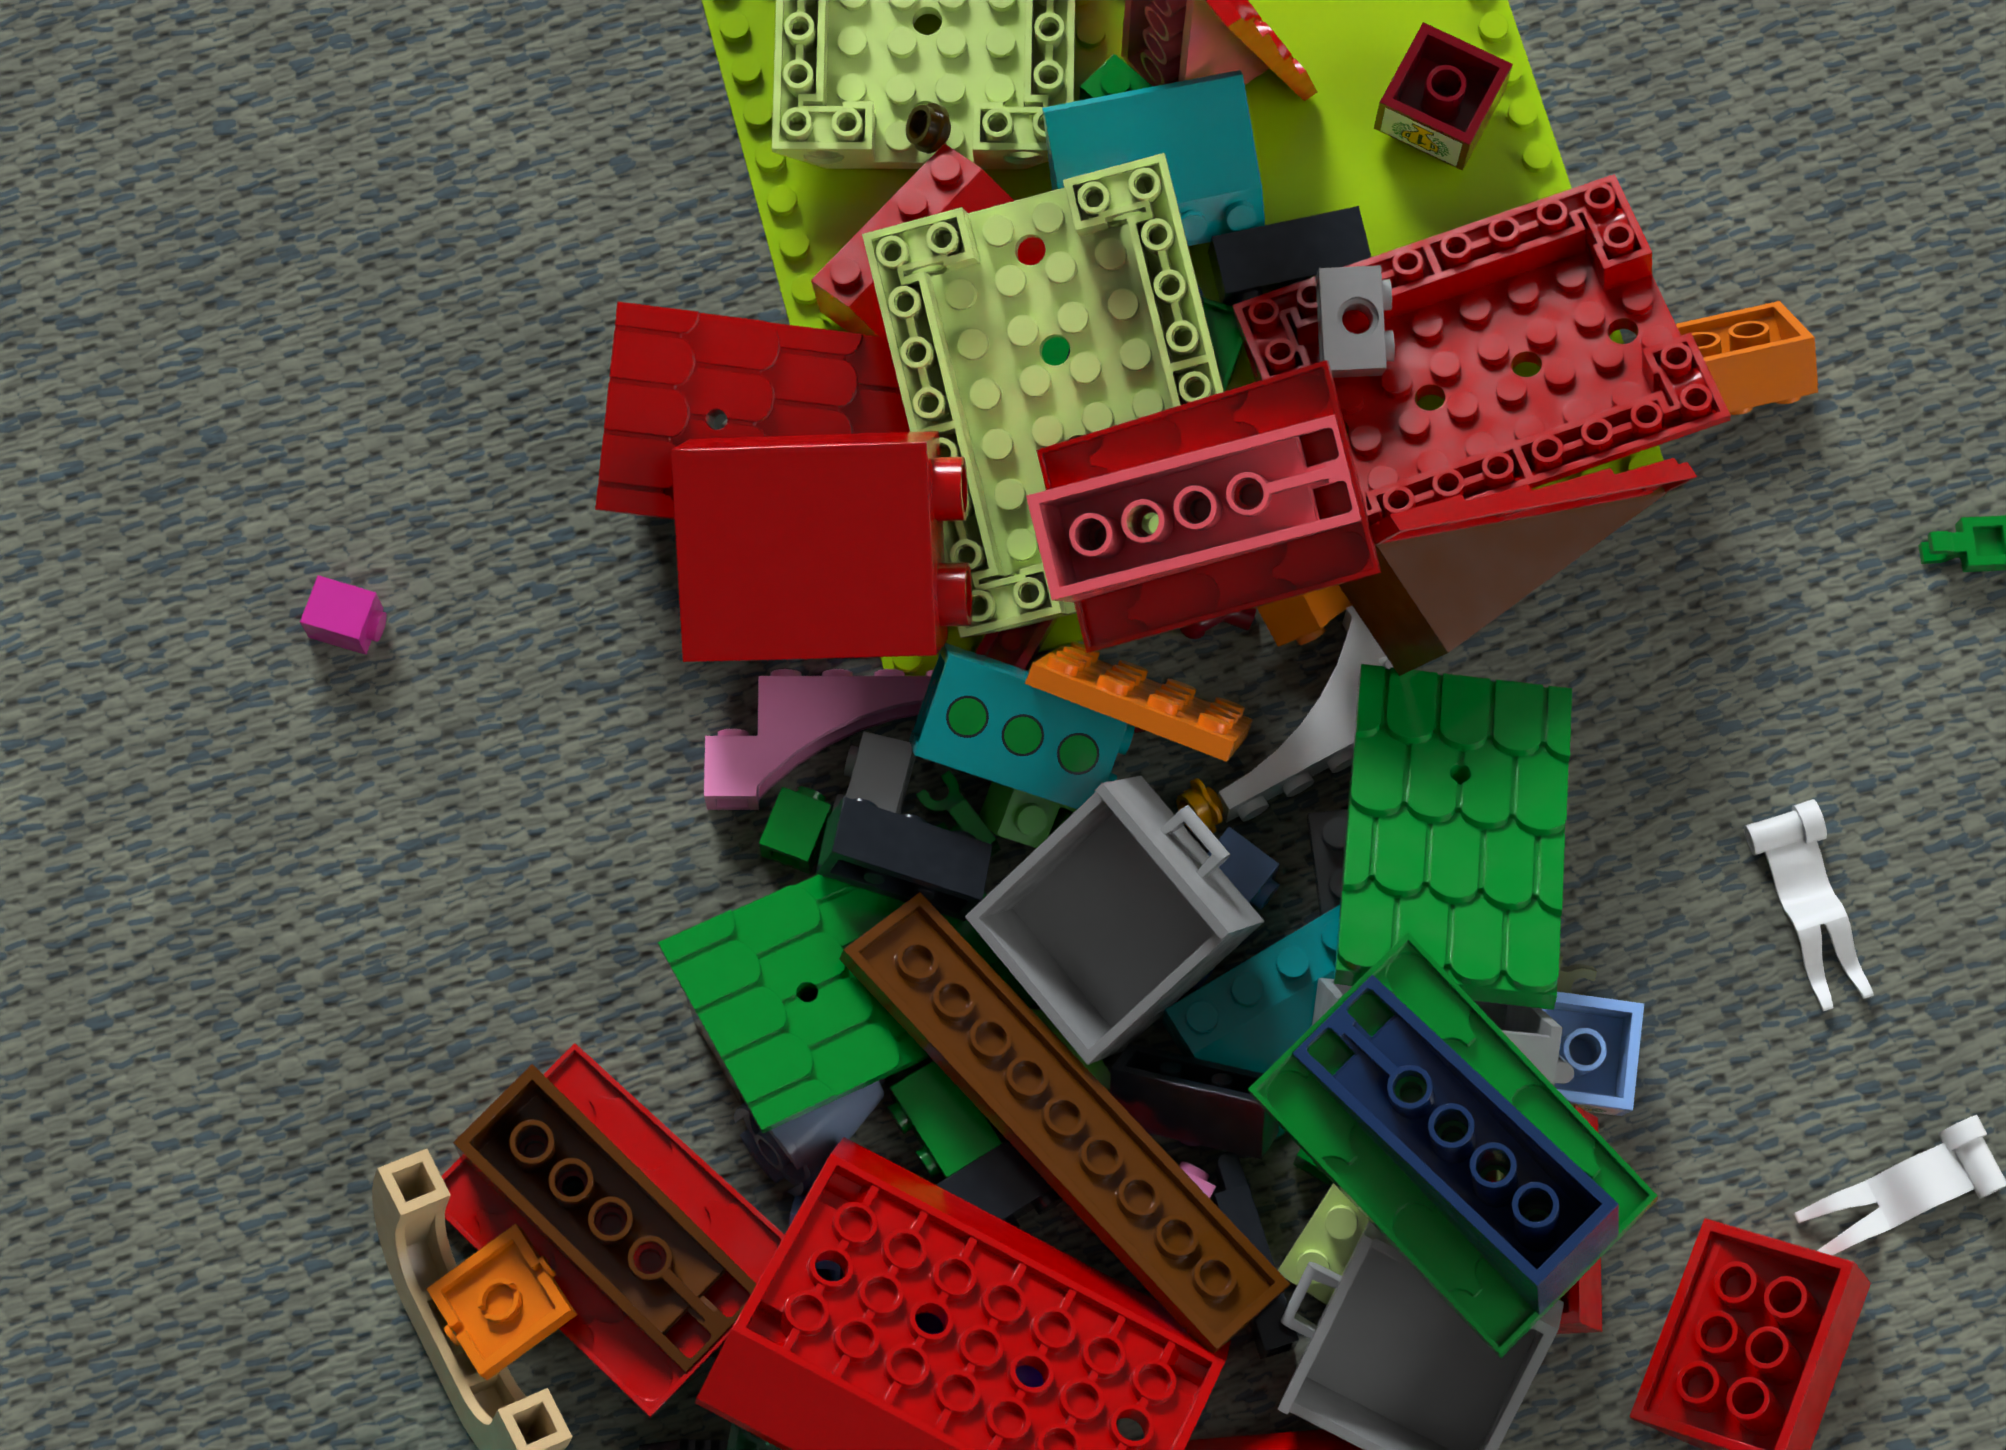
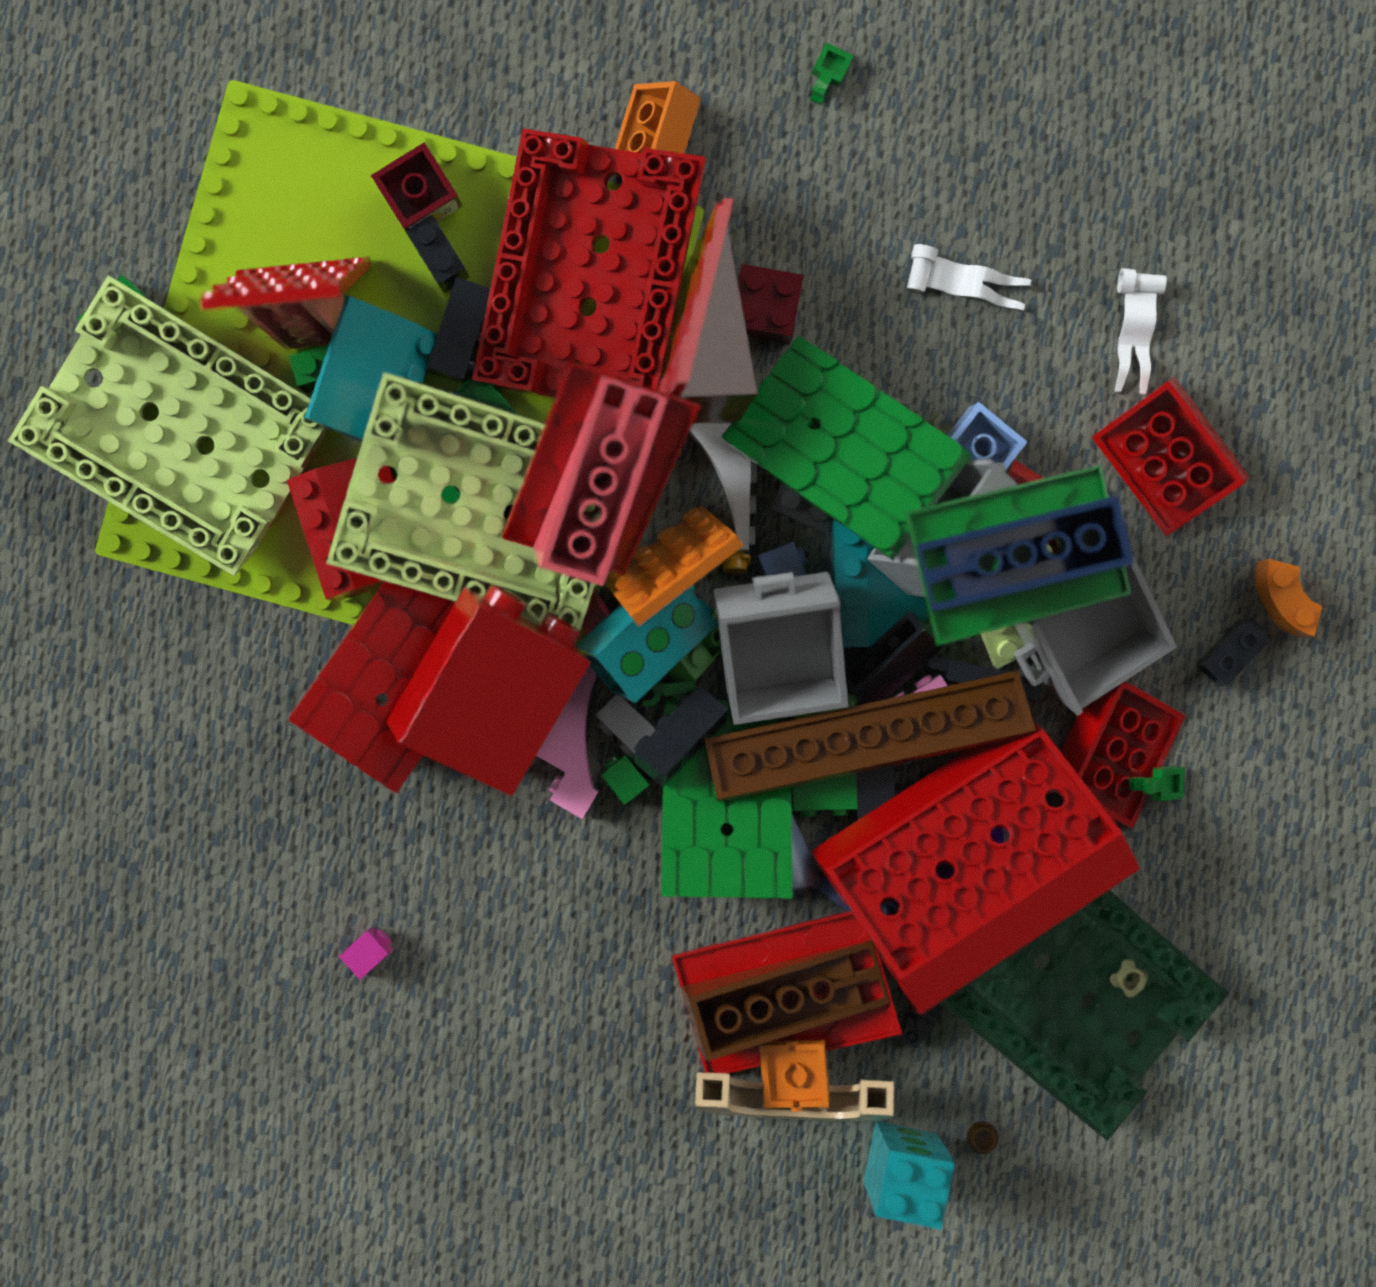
camera: 60 degrees left, 15 degrees up
(928, 127) = (272, 483): dark brown plate -> none
(1360, 290) = (506, 323): light grey brick -> none
(1377, 167) = (437, 253): none -> black brick
(1593, 639) = (769, 302): none -> dark red brick

